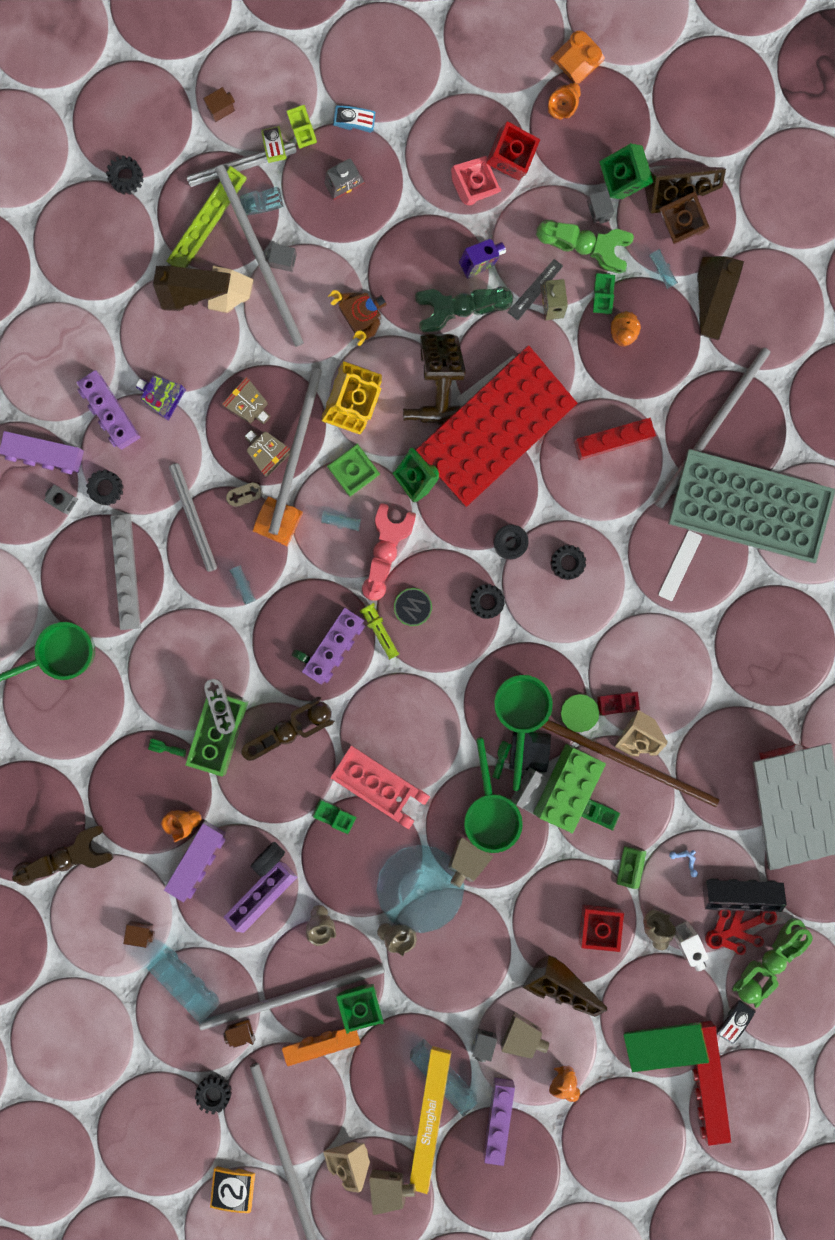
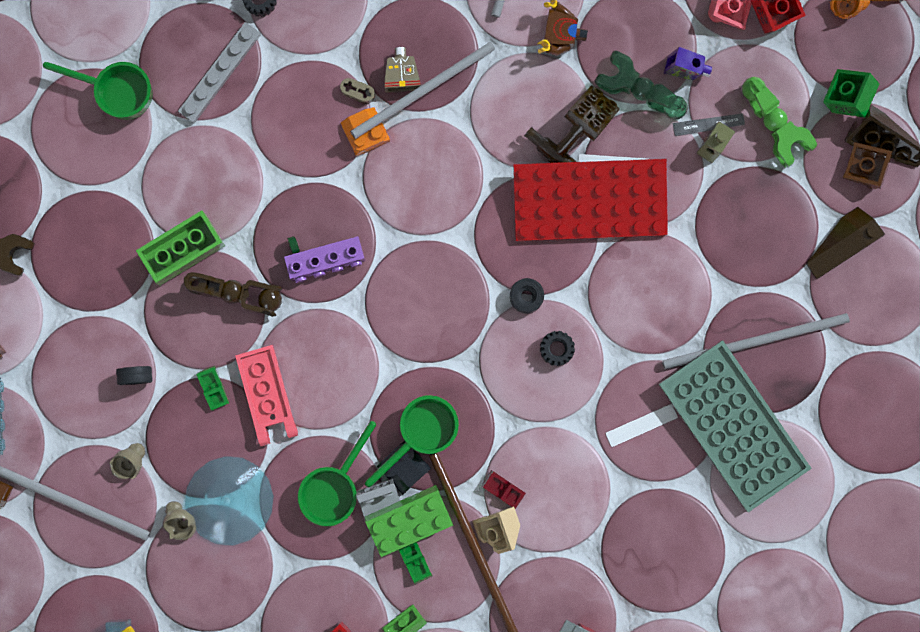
camera: 40 degrees right, 5 degrees down
(160, 746) = (130, 223): green piece -> none
(180, 823) = (94, 292): orange piece -> none
(192, 516) = (304, 75): light grey axle -> none
(194, 862) = (79, 330): medium lavender brick -> none
(209, 694) = (211, 217): light grey beam -> none
(242, 585) = (297, 155): clear light blue pin -> none
(247, 403) = (418, 25): dark tan torso -> none
(260, 897) = (103, 399): medium lavender brick -> none
(319, 1046) = (50, 555): orange bracket -> none
(341, 521) = (412, 171): clear light blue pin -> none
(352, 398) = (500, 87): yellow slope -> none
(353, 470) = (454, 141): bright green tile -> none
(359, 1007) = (102, 550): green slope -> none
(385, 551) = (426, 221): coral piece -> none
(392, 651) = (365, 299): lime pin -> none
(412, 607) = (410, 281): black tile -> none
(416, 475) = (497, 184): green slope -> none
(467, 862) = (281, 509): dark tan torso -> none
(475, 601) = (470, 313): black tyre -> none
(502, 754) = (381, 450): green piece -> none
(579, 713) = (467, 471): bright green tile -> none
(600, 207) = (810, 104): dark grey brick -> none
(603, 293) = (758, 170): green slope -> none
(614, 438) = (672, 285): red brick -> none
(622, 332) = (748, 213): orange piece -> none
(663, 268) = (819, 189): clear light blue pin -> none

